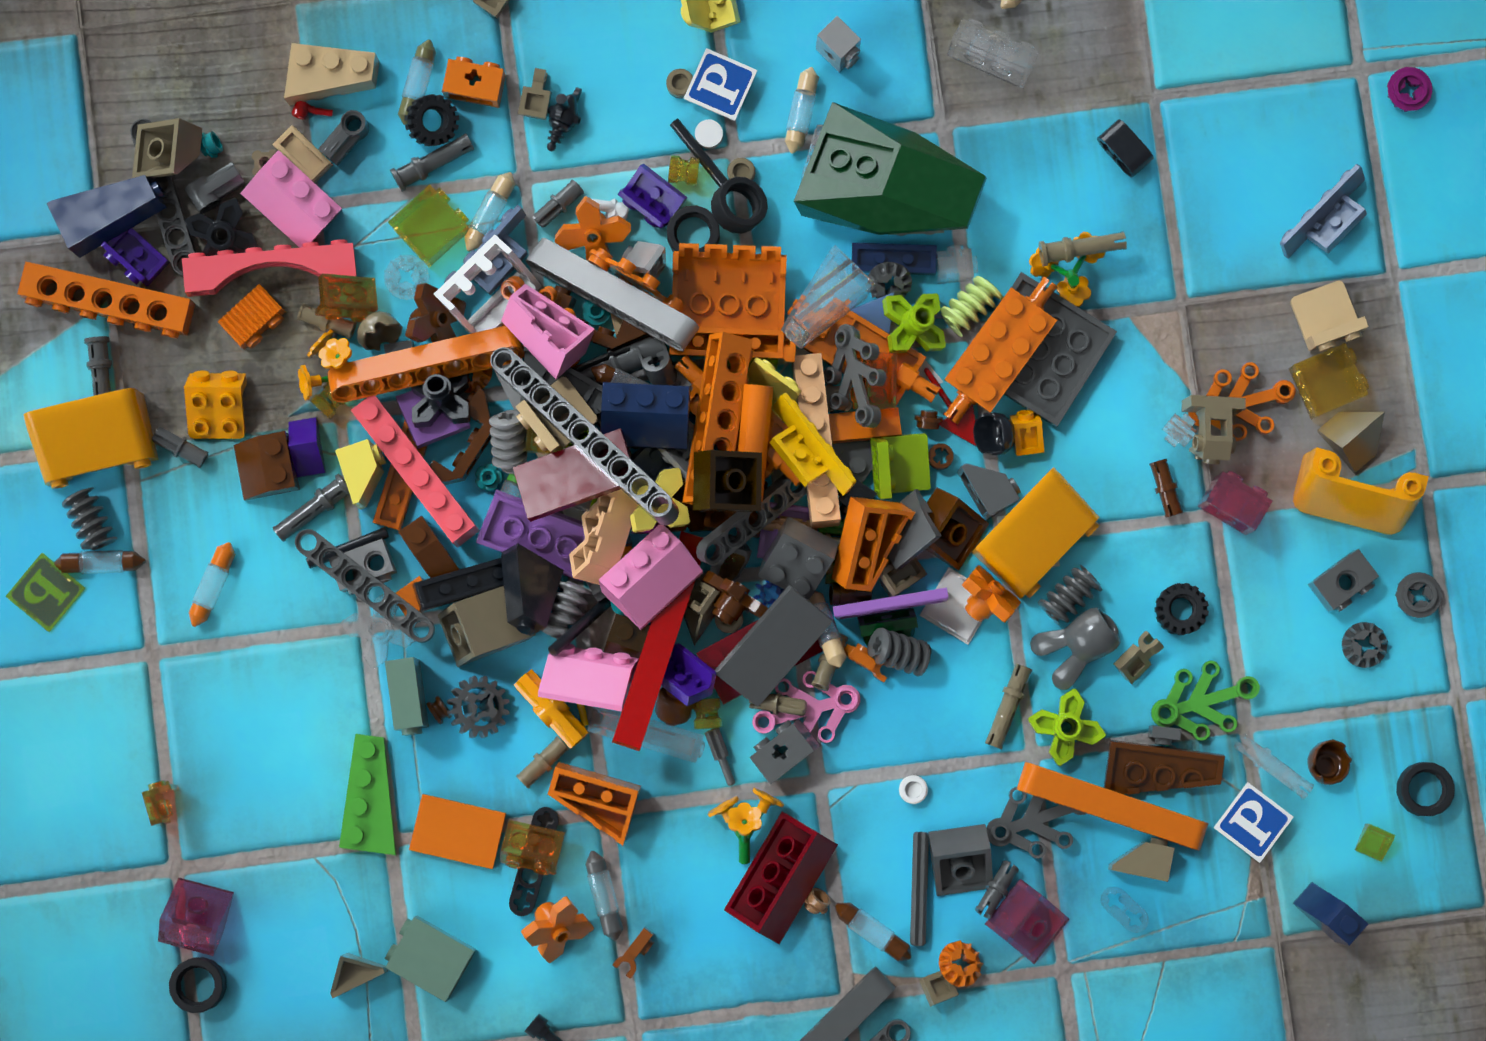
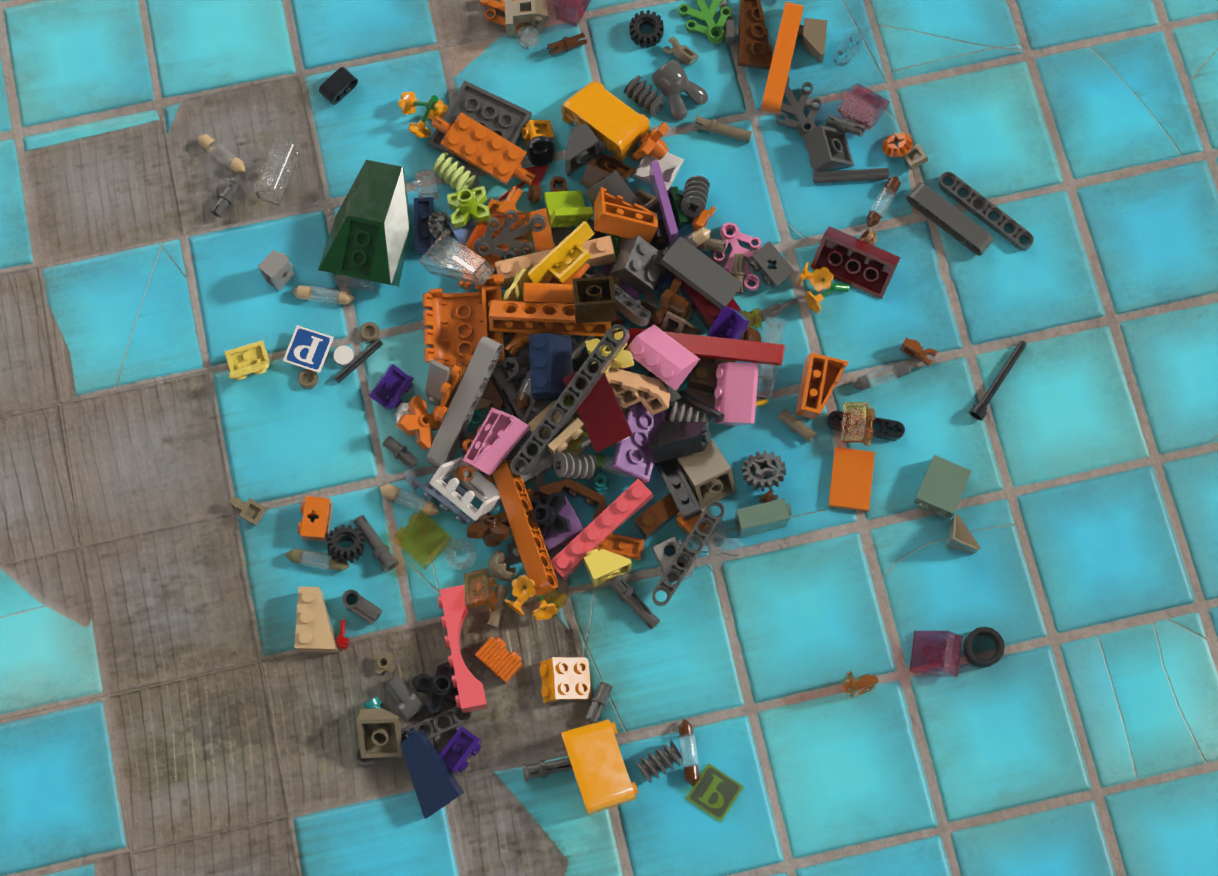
camera: 95 degrees left, 10 degrees down
(37, 278) = (496, 714): orange brick -> none
(211, 584) = (696, 668): piece -> none
(266, 466) = (607, 638): reddish brown slope -> none
(290, 200) = (411, 638): bright pink slope -> none
(302, 154) = (375, 638): tan tile -> none
(306, 447) = (590, 611): dark purple slope -> none
(367, 809) = (841, 542): bright green wing -> none
(381, 533) = (656, 569): black bar -> none
(535, 99) = (326, 475): dark tan plate -> none
(550, 711) = (763, 421): light orange piece -> none
(554, 926) = (909, 403): orange plant -> none
(563, 117) = (338, 454): black piece -> none
(683, 170) = (371, 368): clear yellow wheel -> none
(688, 212) = (403, 349): black tyre -> none
(726, 218) = (401, 335): black tyre -> none
(913, 789) = (785, 185): white tile -> none
(1068, 248) = (411, 110): dark tan pin -> none
(1081, 730) = (732, 92): lime plant -> none

